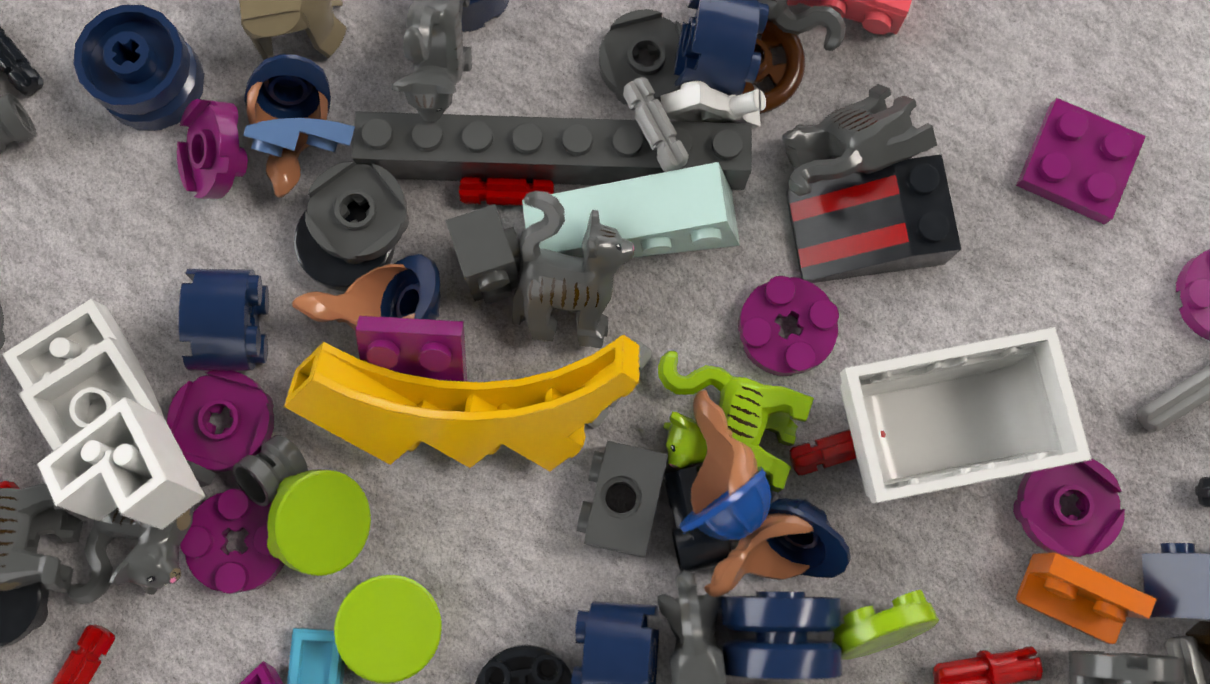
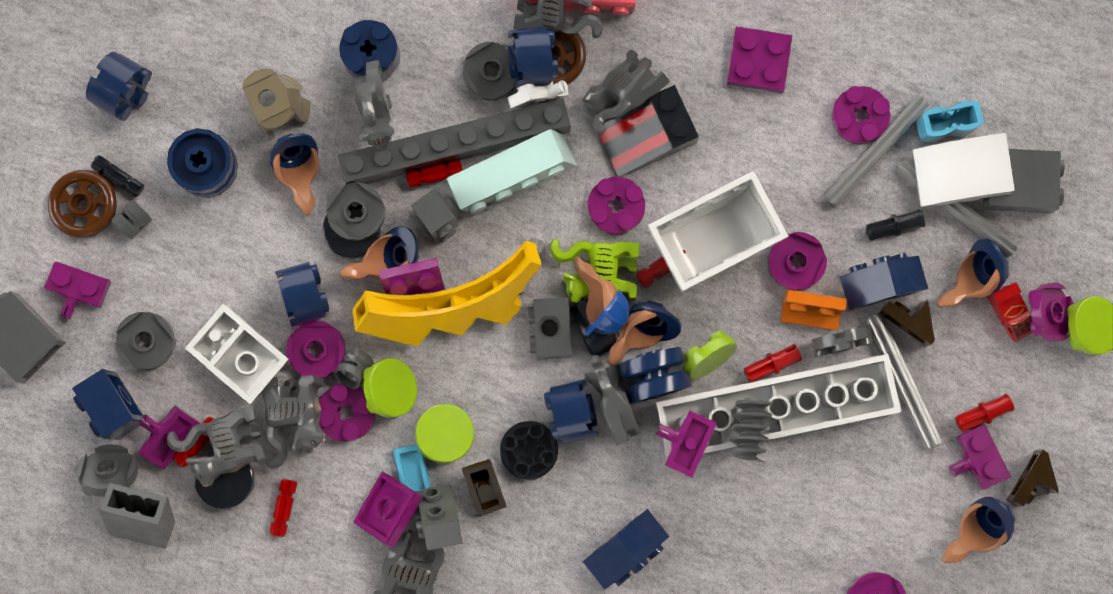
camera: 10 degrees left, 5 degrees up
(125, 463) = (281, 382): white brick -> none
(212, 149) = (256, 187): magenta plate -> none
(282, 133) = (303, 178): medium blue slope -> none
(565, 281) = (485, 218): dark grey animal -> none
(655, 124) = (509, 116): light grey axle -> none

